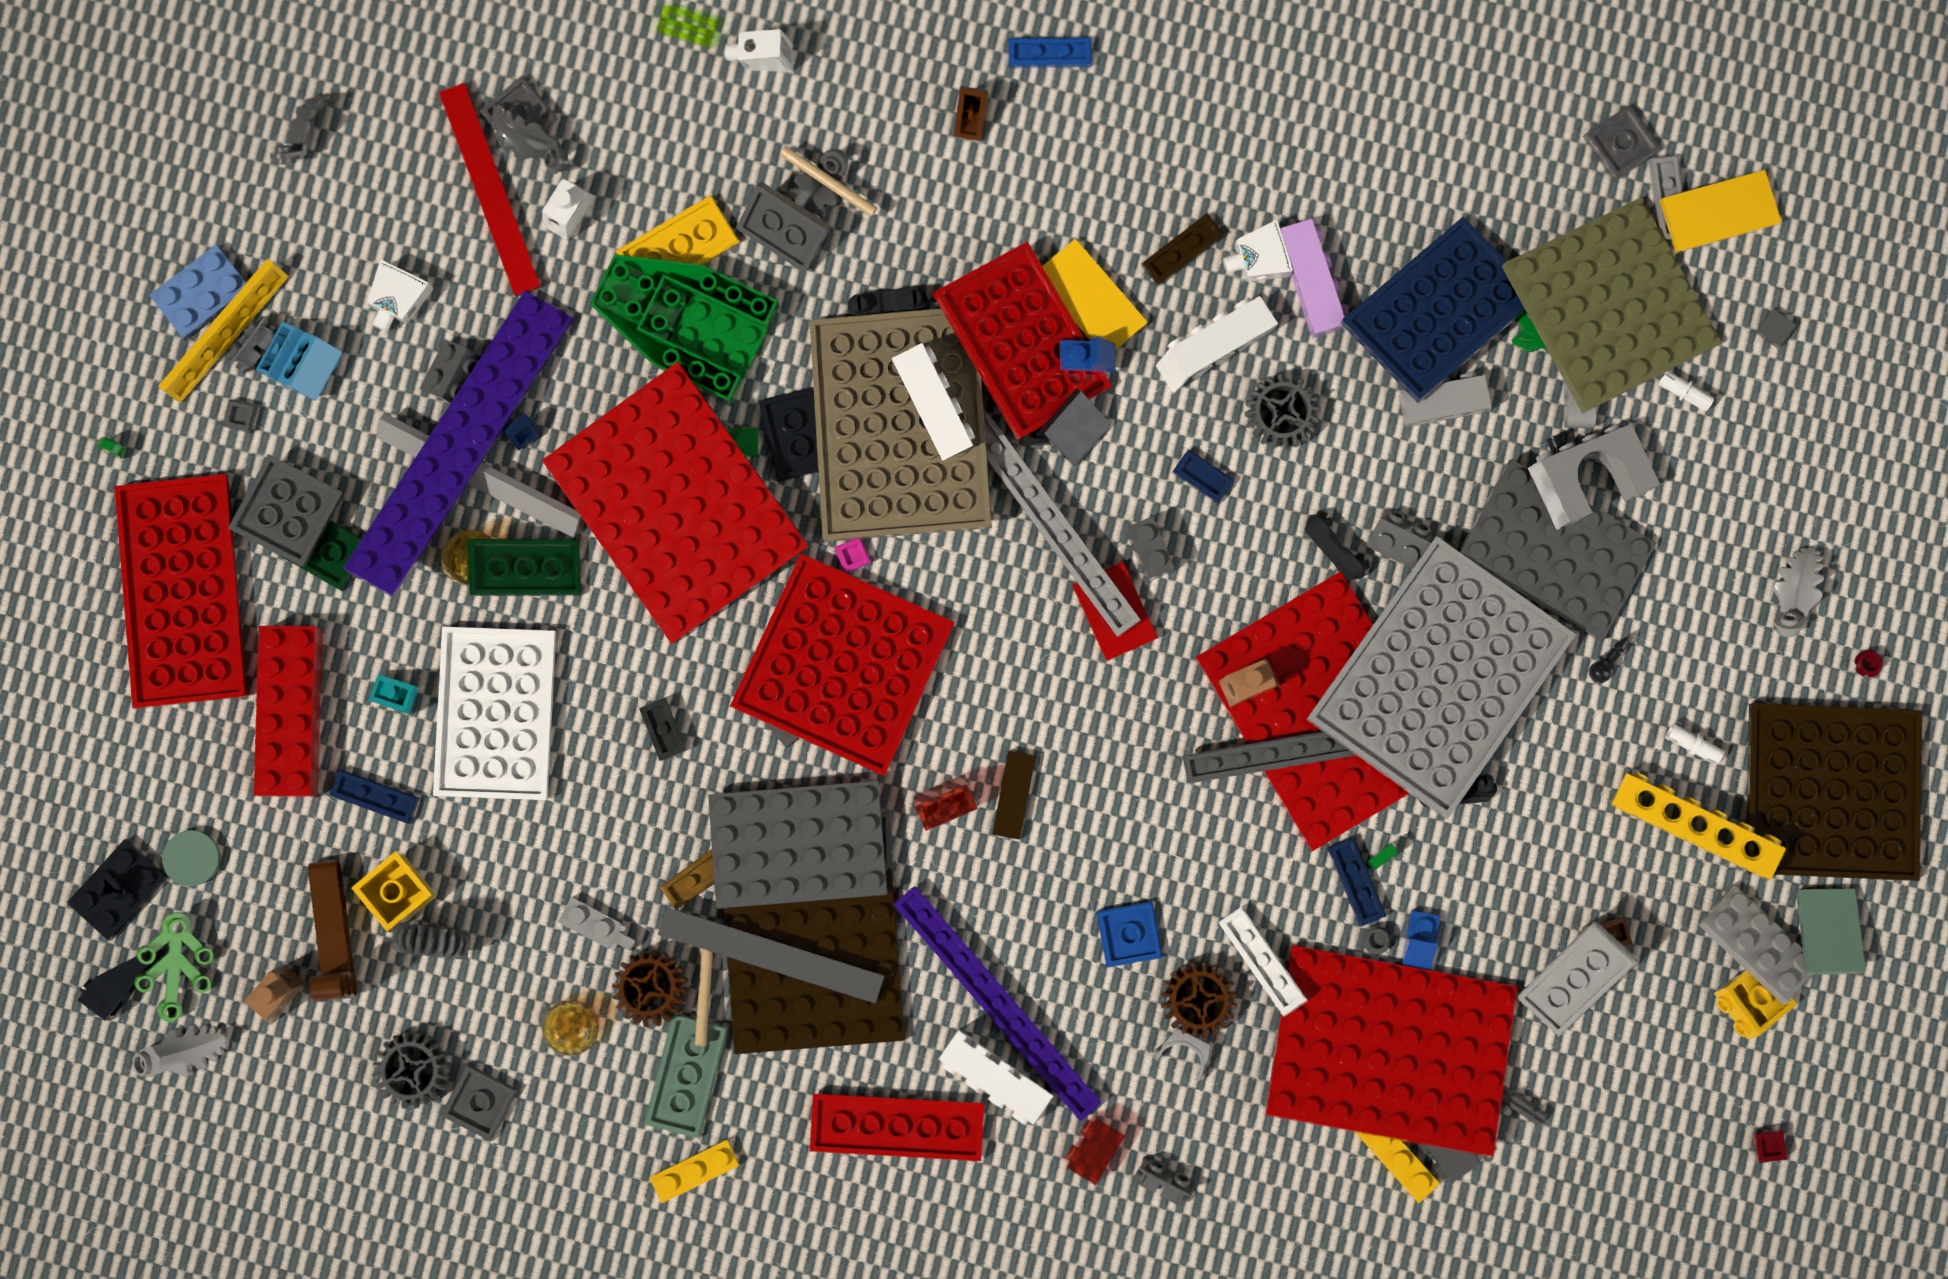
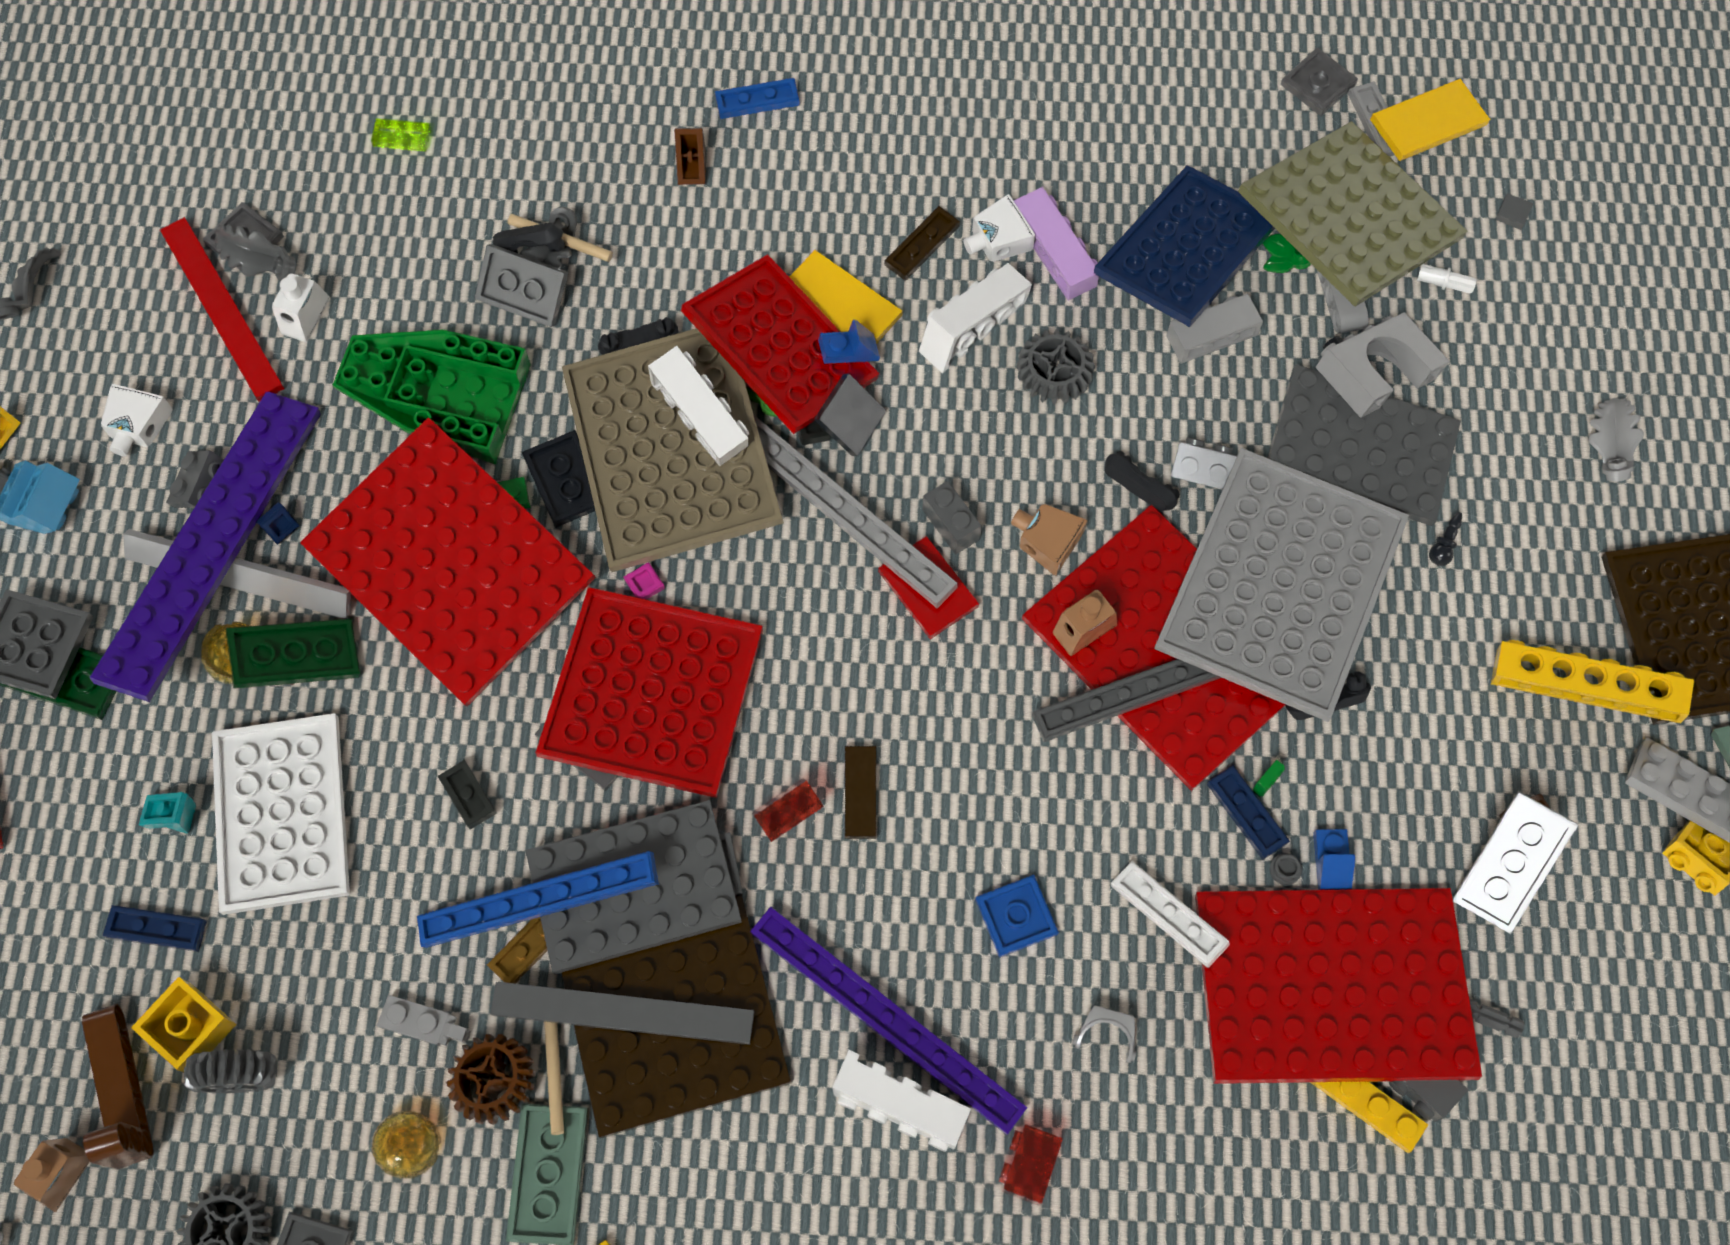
camera: 15 degrees left, 15 degrees down
(288, 711) = (47, 854): red brick -> none
(689, 237) = (434, 308): yellow tile -> none
(712, 843) = (538, 899): none -> blue tile
(762, 51) = (477, 137): white torso -> none
(797, 178) = (531, 236): none -> black piece
(896, 1127) = (799, 1184): red plate -> none
(1176, 1185) = (1106, 1180): dark grey hinge -> none
(1203, 476) = (989, 442): dark blue tile -> none
(1222, 996) = (1105, 957): reddish brown gear -> none
(1237, 584) = (1049, 535): none -> medium nougat torso
(1694, 744) = (1560, 604): white pin -> none
(1875, 663) = (1710, 488): dark red plate -> none

